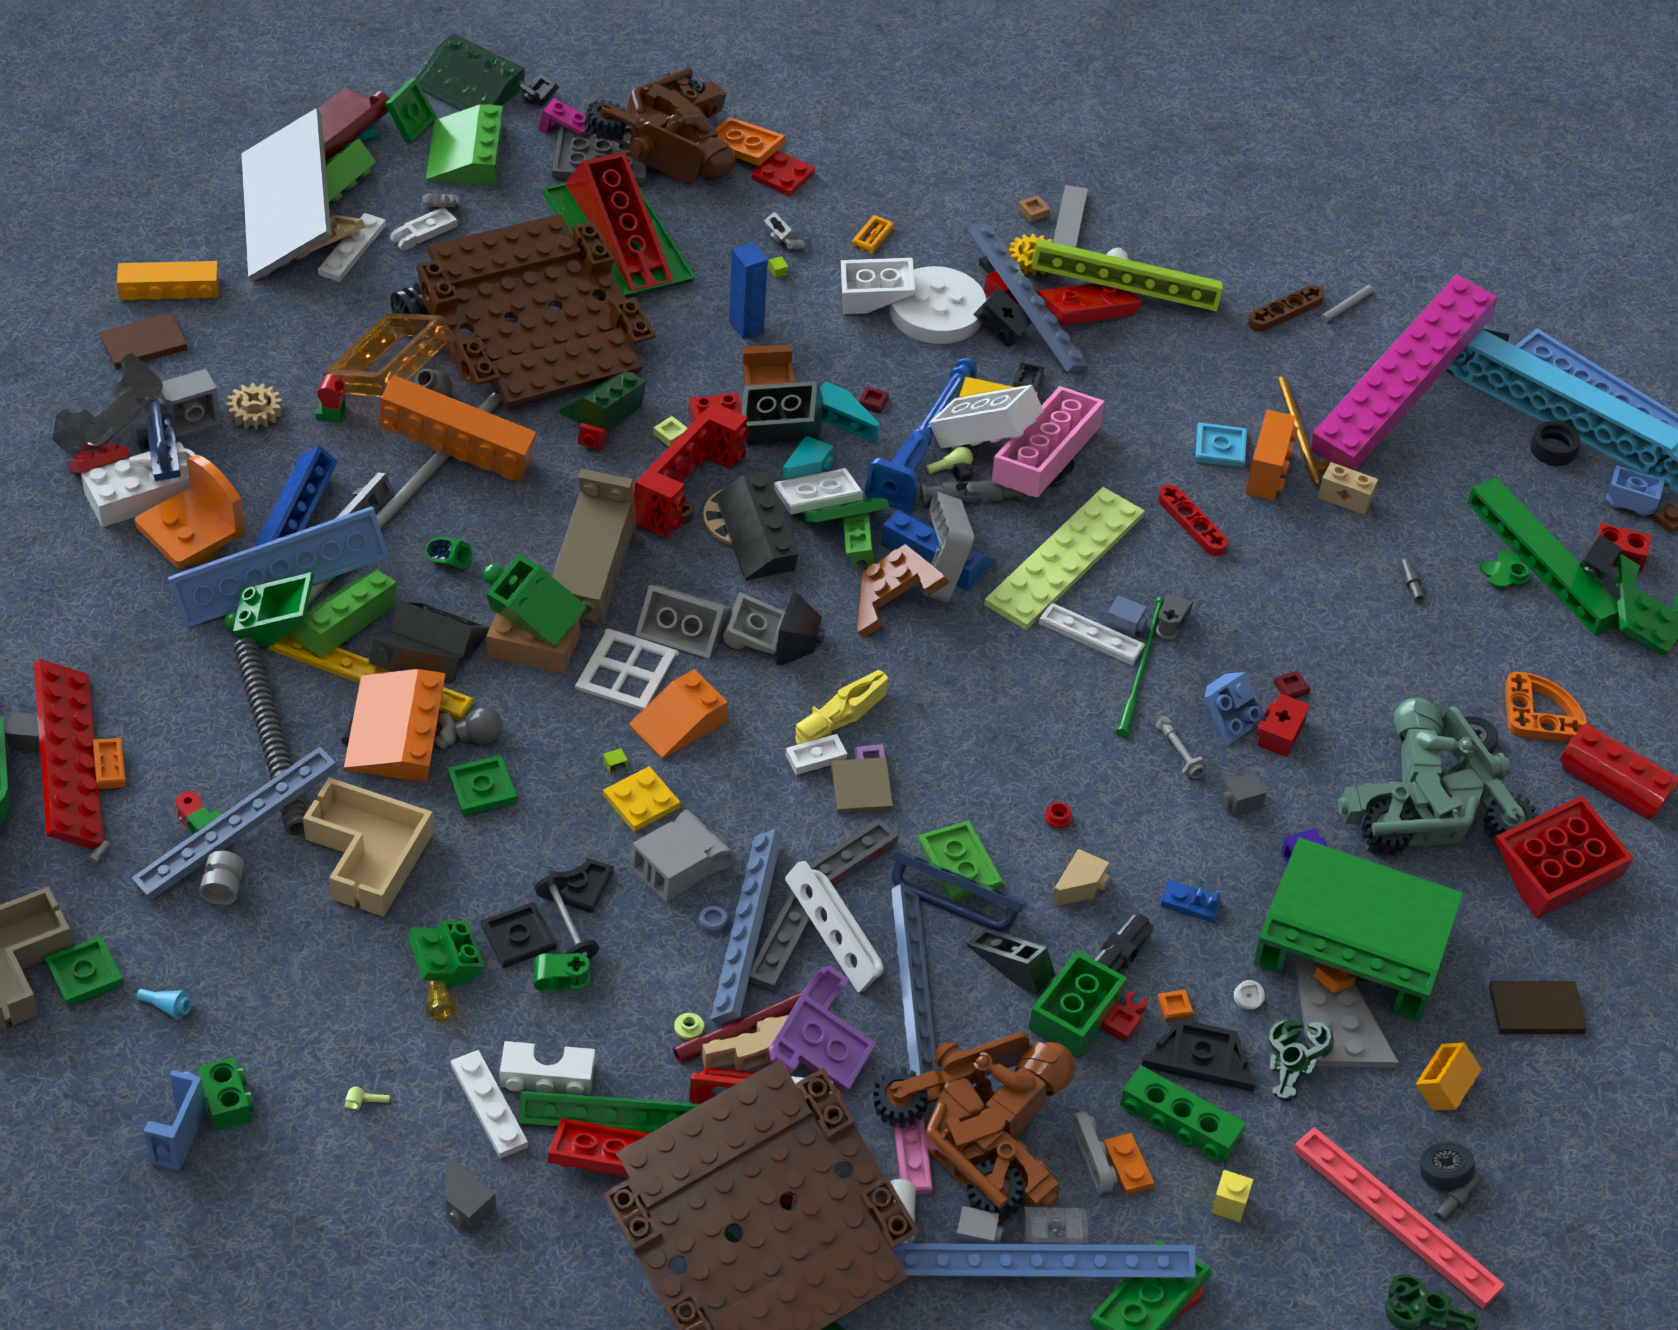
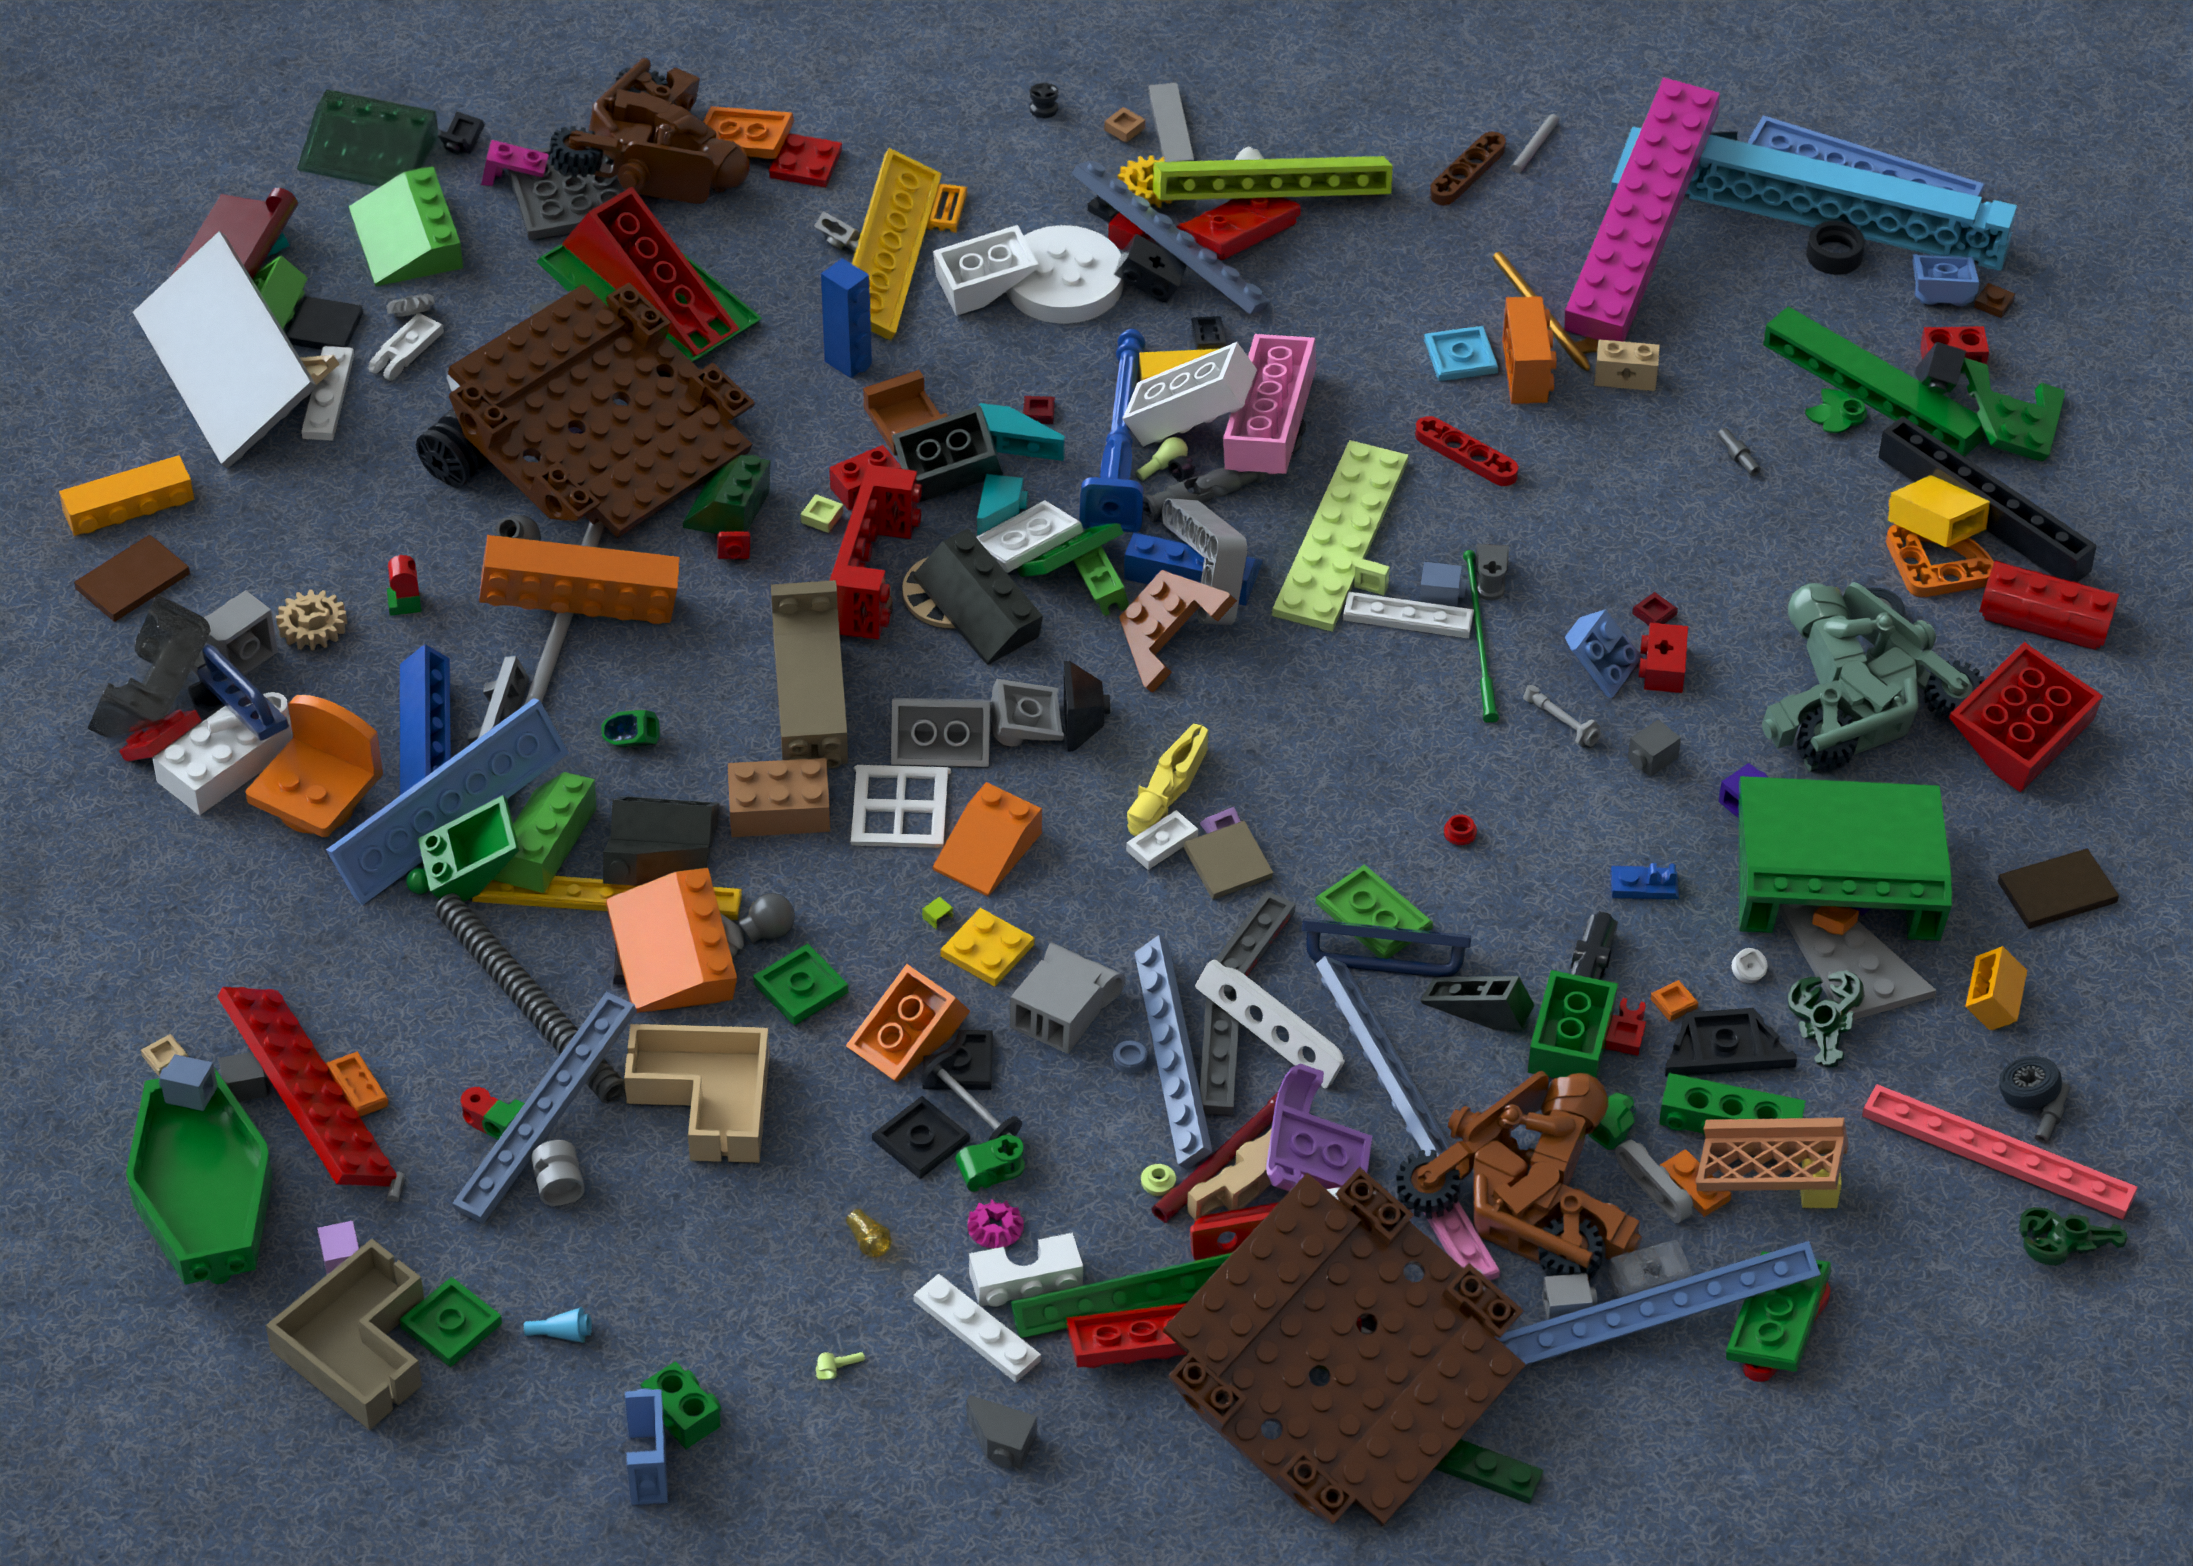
camera: 15 degrees left, 0 degrees up
(27, 880) = (337, 1244): none -> lavender brick
(374, 197) = (324, 323): none -> black tile
(410, 110) = (320, 202): green plate -> none
(429, 336) = (503, 476): clear orange window -> none
(446, 953) = (855, 1178): green brick -> none
(532, 599) = (782, 759): green slope -> none
(535, 1031) = (993, 1235): none -> dark pink gear
(548, 841) = (907, 1024): none -> orange slope
(816, 247) = (894, 235): none -> yellow plate
(980, 175) = (1044, 100): none -> black wheel
(1073, 595) = (1371, 576): none -> yellowish green plate
(1081, 879) = (1518, 892): tan slope -> none
(1081, 1090) = (1616, 1123): none -> green rock
(1201, 1147) = (1771, 1140): none -> nougat fence
(1555, 670) = (1938, 511): none -> yellow brick
(1600, 674) = (2010, 514): none -> black brick

